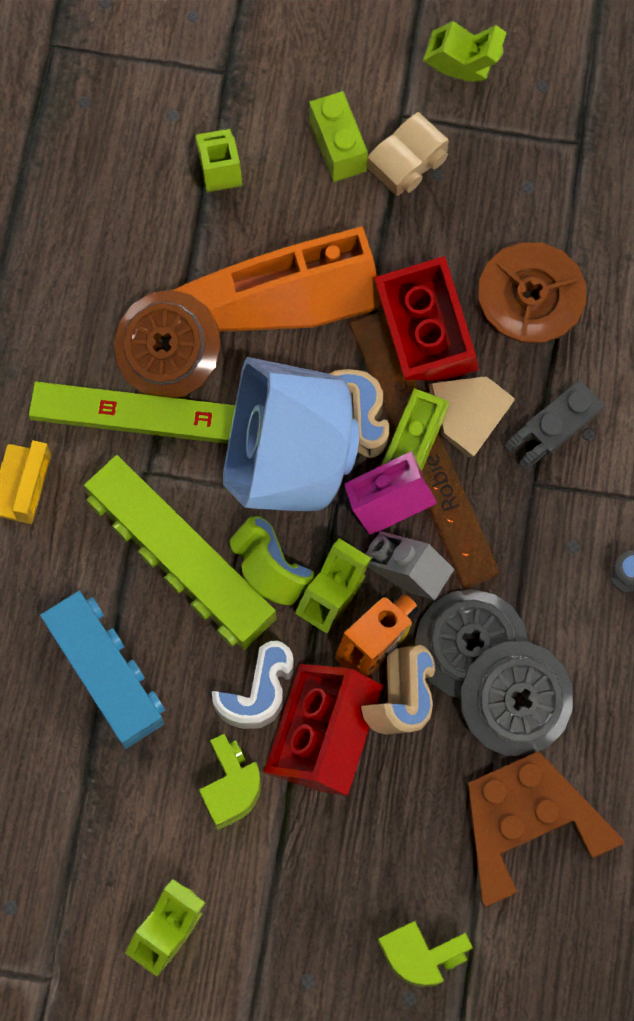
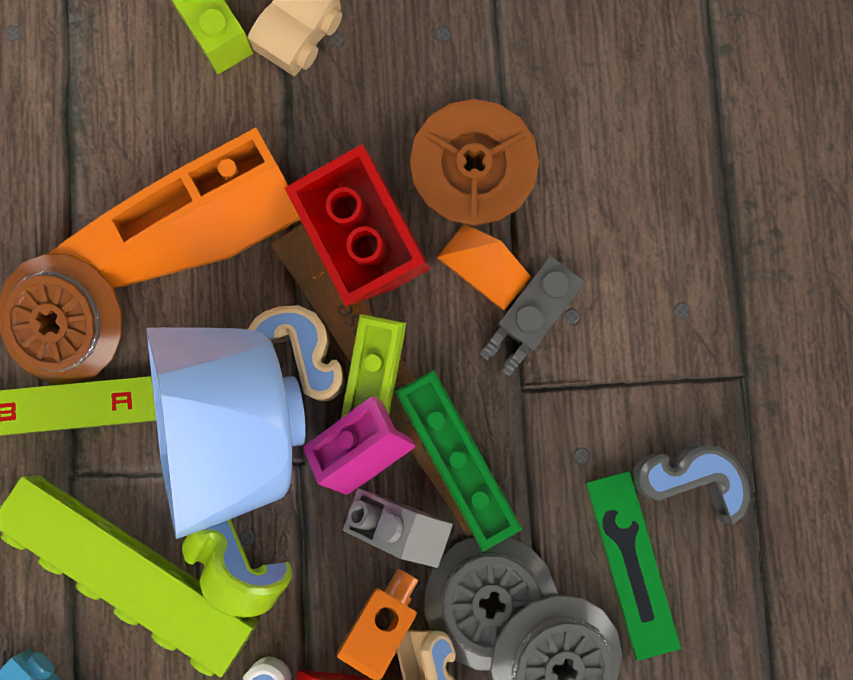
camera: 15 degrees left, 10 degrees up
(219, 160) = (70, 79): lime brick -> none
(334, 586) = (315, 579): lime brick -> none
(469, 522) = (458, 461): none -> green tile
(473, 411) = (436, 321): tan slope -> none
(524, 377) = (485, 265): none -> orange slope
(596, 640) = (632, 566): none -> green tile

